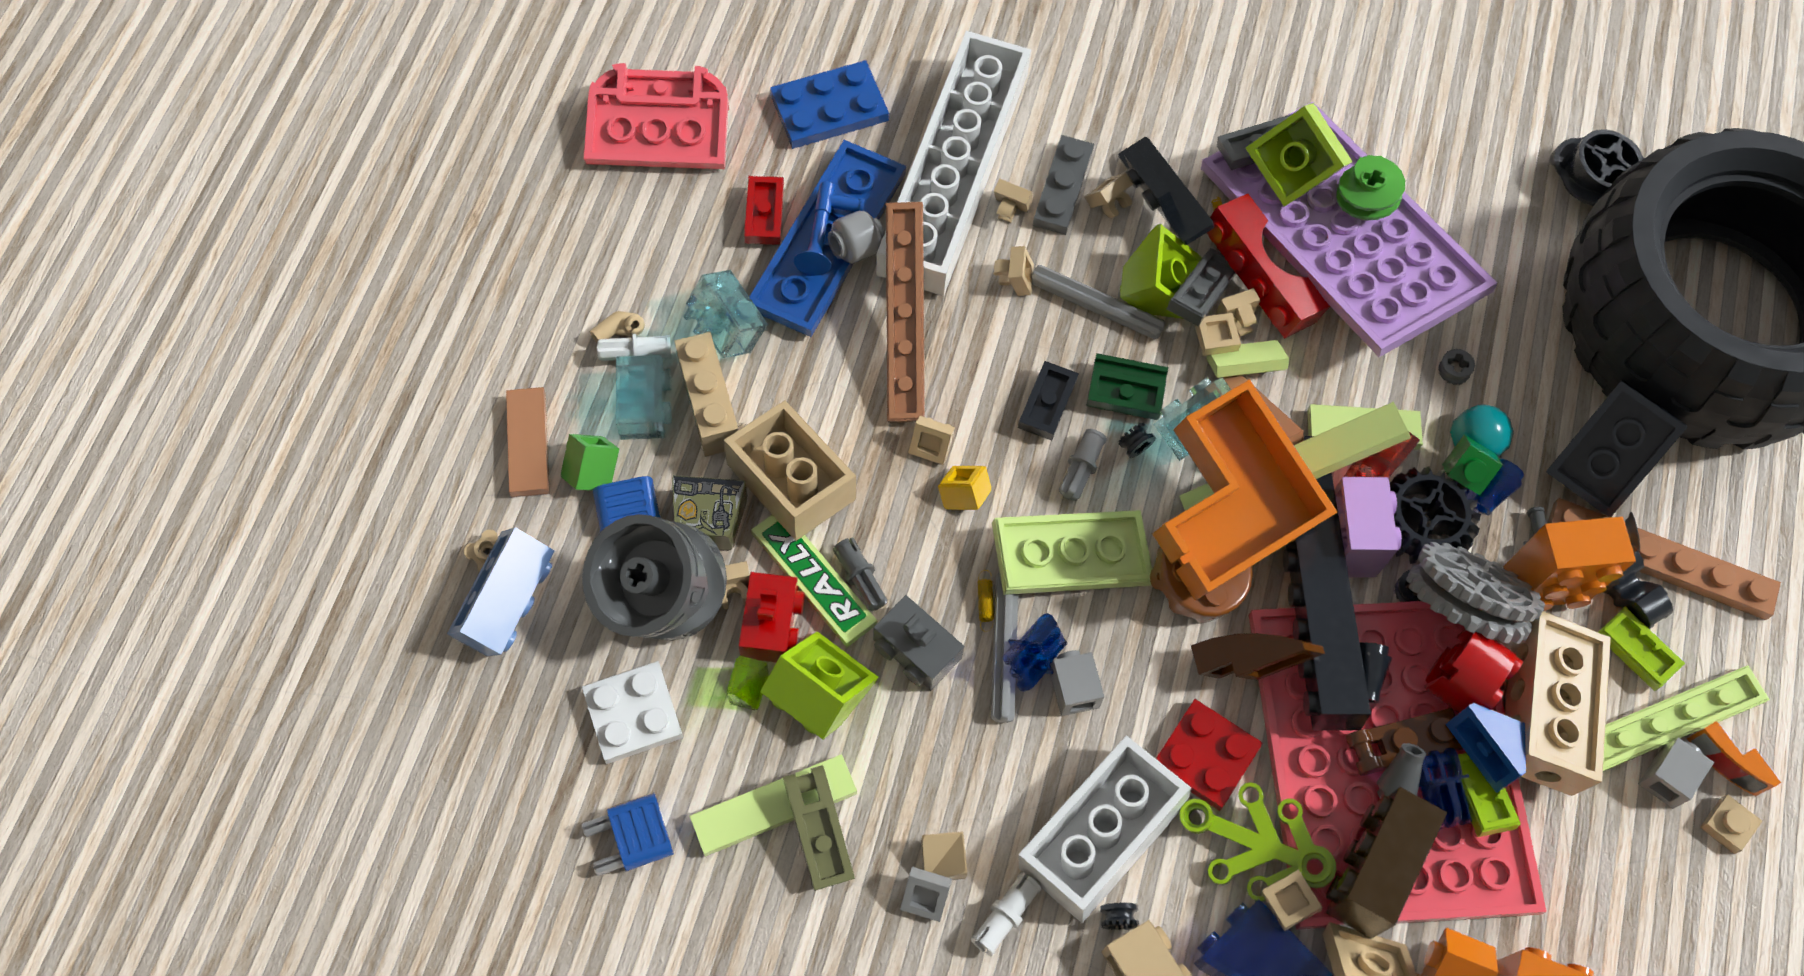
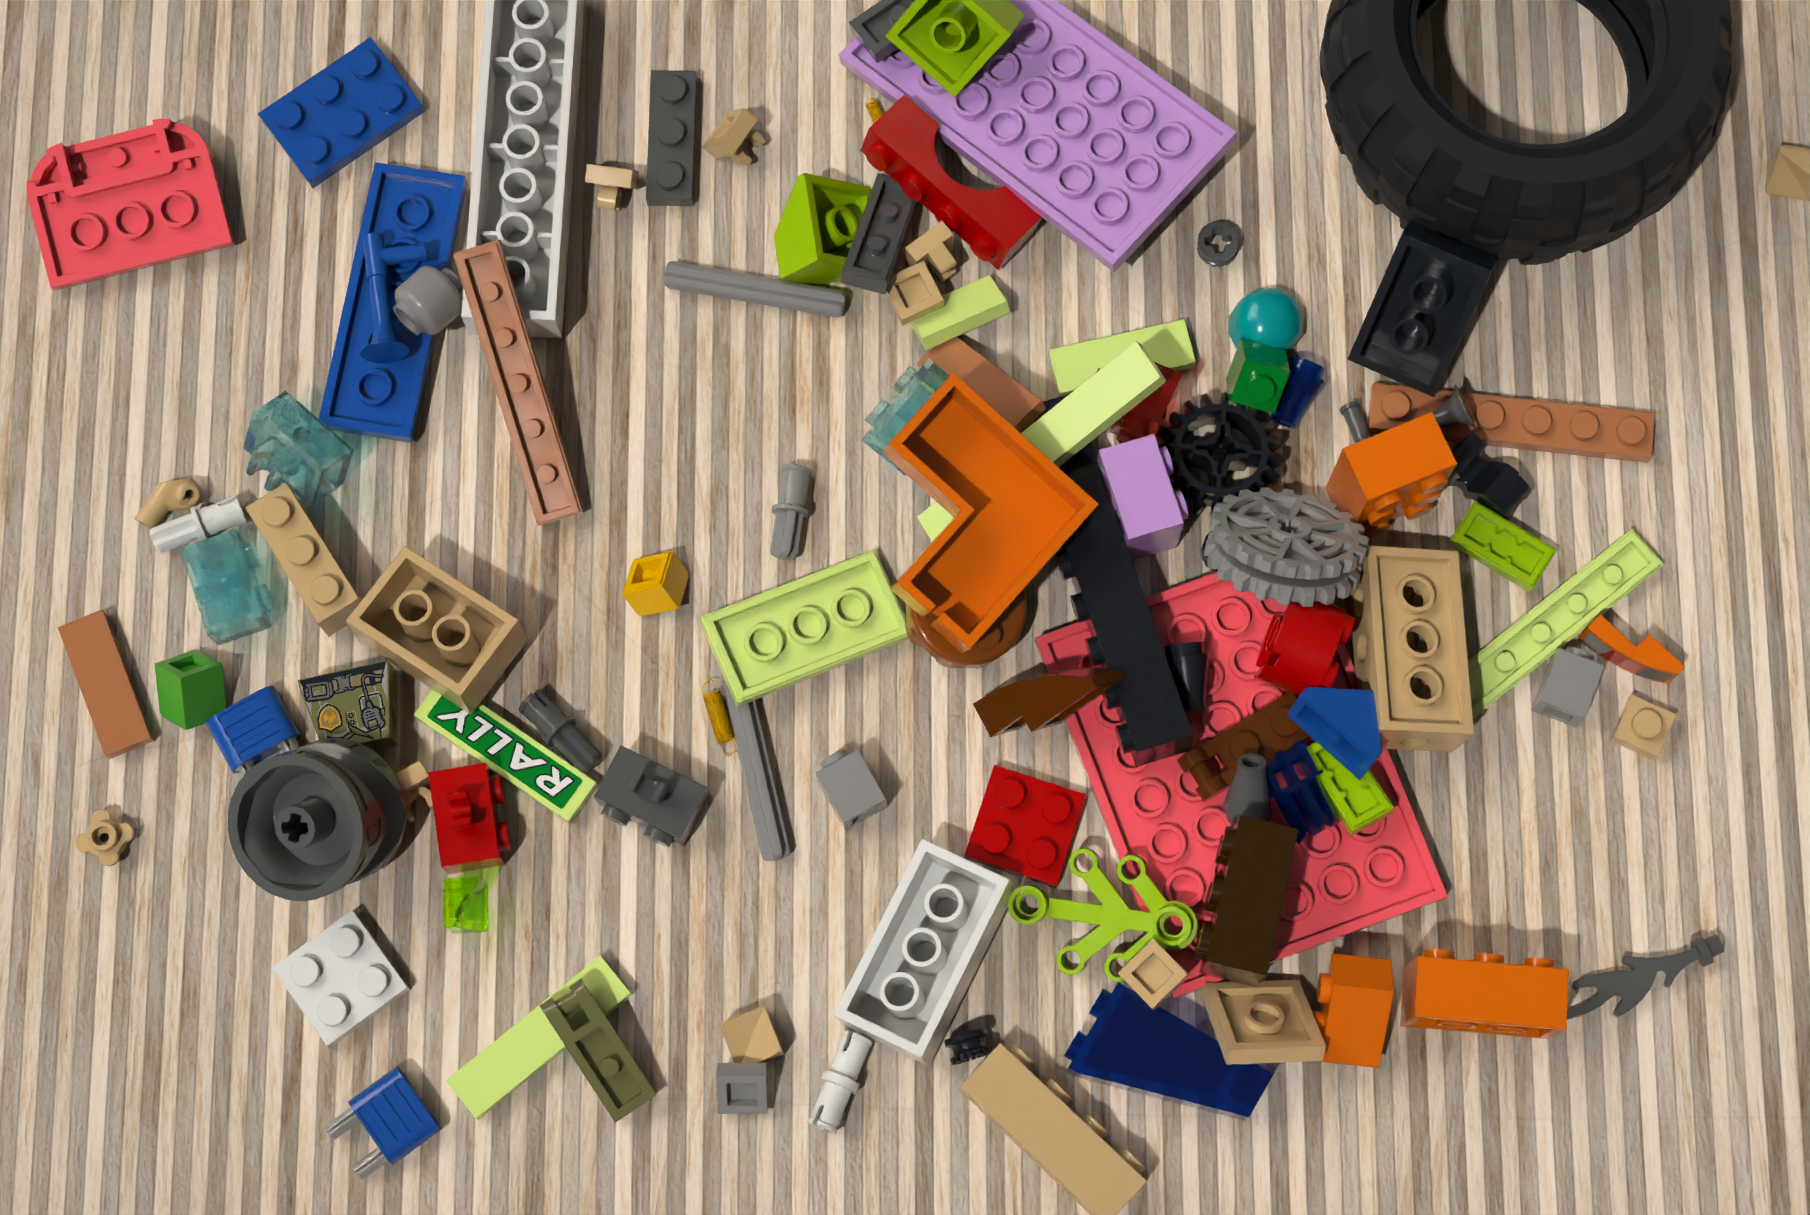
camera: 10 degrees left, 10 degrees up
(502, 593) = (140, 885): brick -> none
(764, 210) = (302, 289): red plate -> none
(818, 684) = (549, 880): lime slope -> none
(931, 440) = (598, 535): tan tile -> none
(1016, 271) = (643, 279): tan tile -> none
(1035, 652) = (791, 767): clear blue arm -> none
(1048, 400) = (727, 441): black plate -> none
(1127, 386) = (819, 393): dark green plate -> none
(1137, 440) = (848, 462): black bush -> none
(1165, 191) = (798, 115): black bracket -> none
(1371, 188) = (1055, 46): bright green piece -> none

